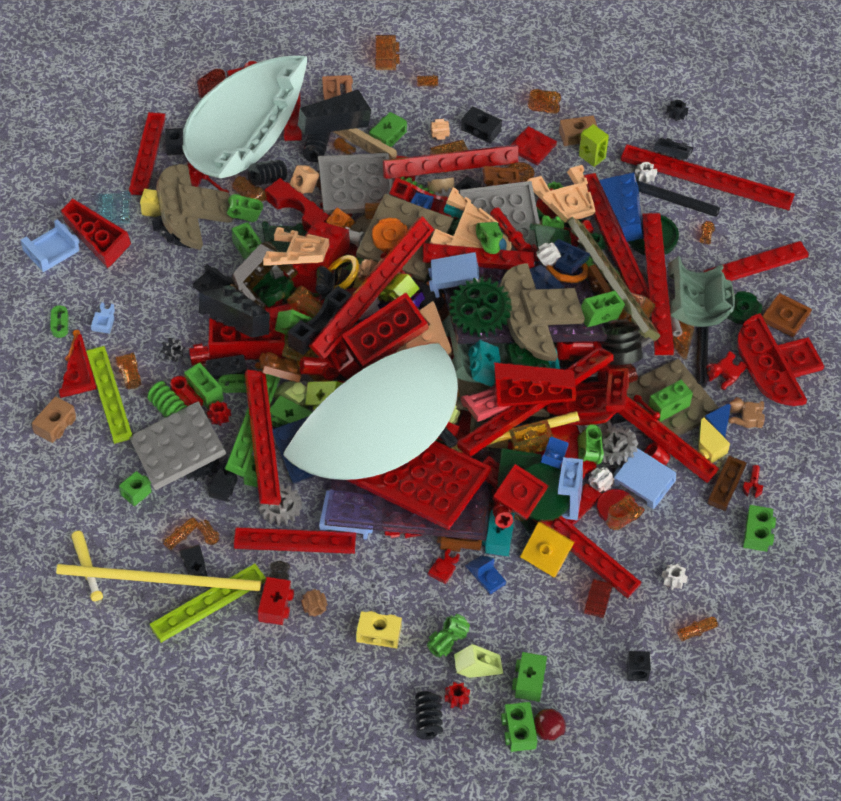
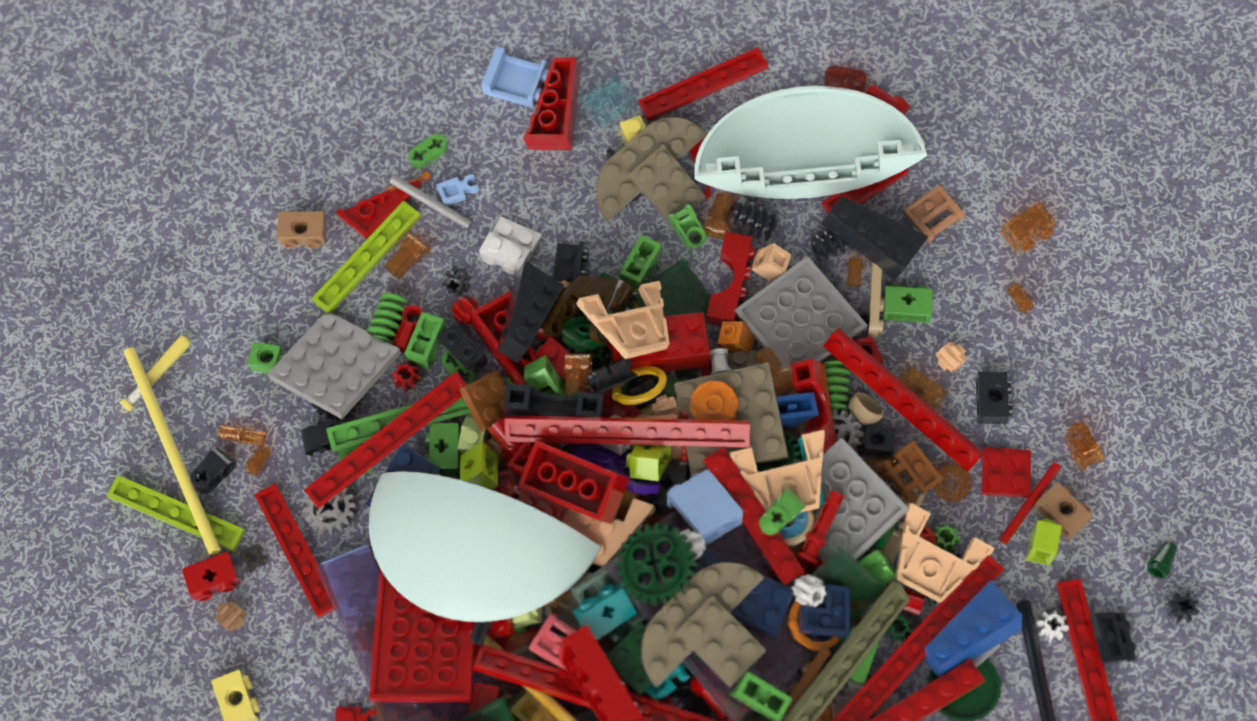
camera: 65 degrees right, 15 degrees up
(99, 336) = (431, 202): none -> light grey bar
(171, 311) = (509, 245): none -> white plate
(174, 141) = (726, 98): black brick -> none
(560, 141) = (1029, 503): none -> red bar
(643, 106) = (1161, 562): none -> dark green cone

